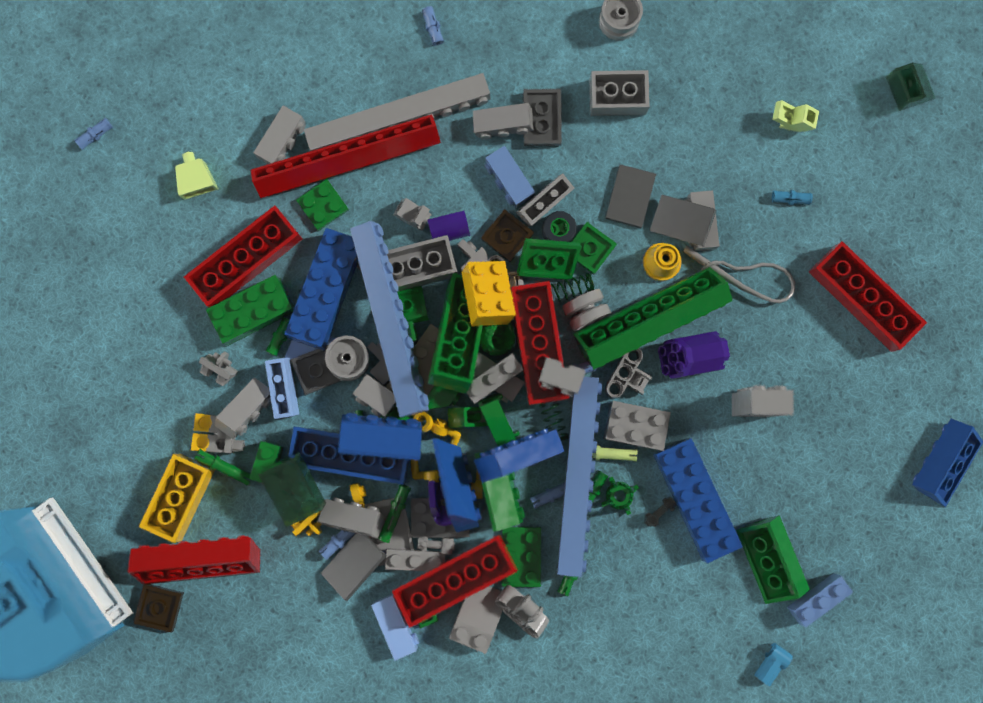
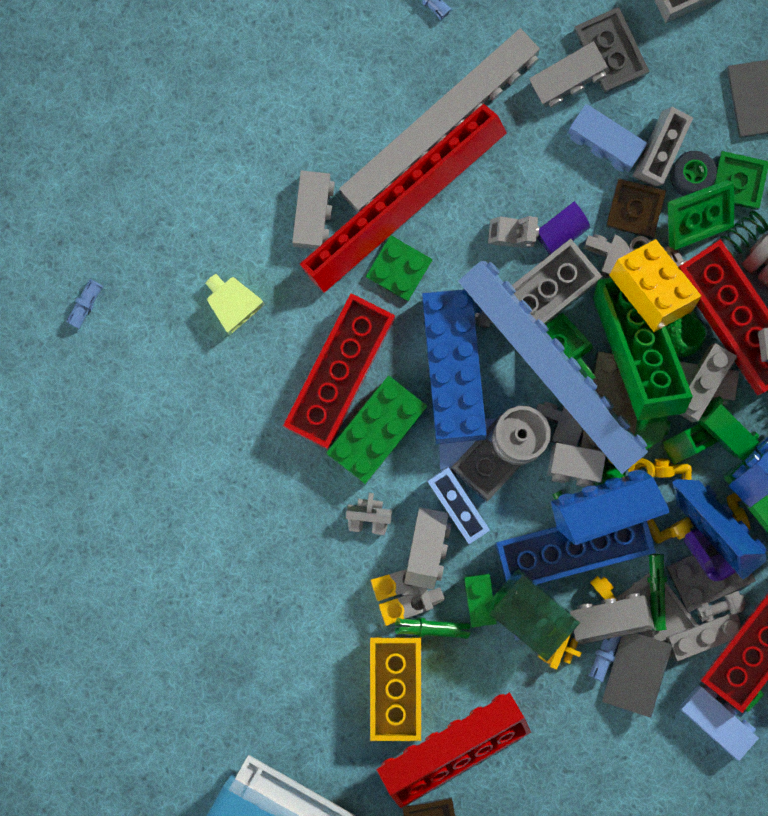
camera: 25 degrees left, 0 degrees up
(278, 338) = (423, 446): green pin -> none

